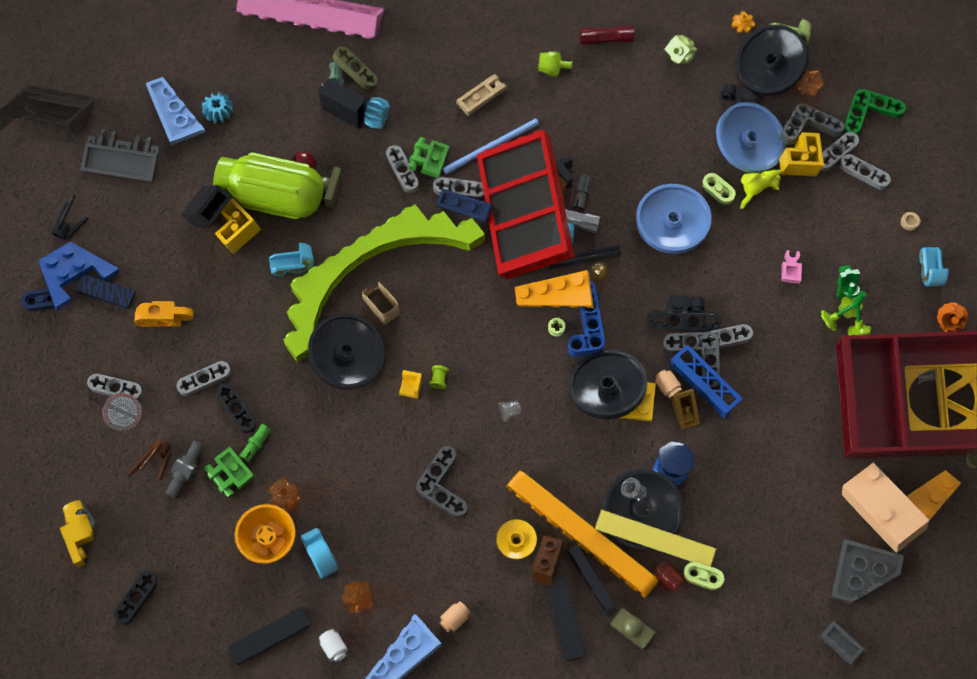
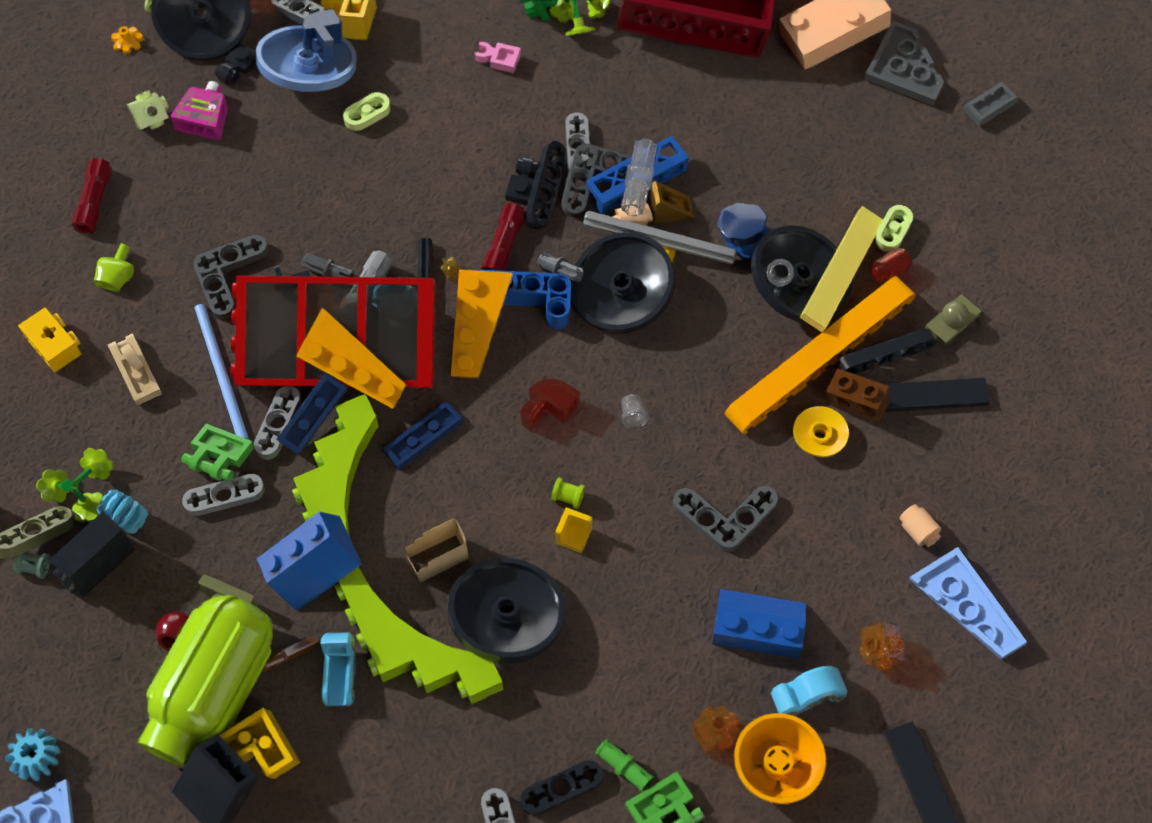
camera: 80 degrees left, 5 degrees down
(302, 232) = (291, 652): none -> reddish brown piece
(333, 645) = (947, 692): white brick -> none
(358, 226) = (310, 560): none -> blue slope
(365, 514) = (759, 623): none -> blue slope
(389, 73) = (55, 484): none -> lime plant
(467, 279) = (423, 435): none -> dark blue tile
(484, 89) = (132, 357): none -> tan tile
(491, 40) = (50, 339): none -> yellow brick
(502, 217) = (344, 357): none -> light orange wing
(508, 353) = (551, 397): none -> clear red brick
(560, 322) = (515, 330): yellowish green bush -> none
(565, 124) = (214, 273): none -> dark grey beam
(613, 341) = (560, 266): none -> dark grey axle
(614, 299) = (509, 225): none -> dark red axle
(652, 405) = (664, 238): none -> light grey axle
(673, 218) = (399, 165): medium blue dish -> none
(691, 83) = (201, 112): none -> dark pink torso
(695, 378) = (639, 177): none -> clear piece
(756, 182) = (372, 67): neon yellow animal -> none
(773, 139) = (321, 32): none -> dark blue brick

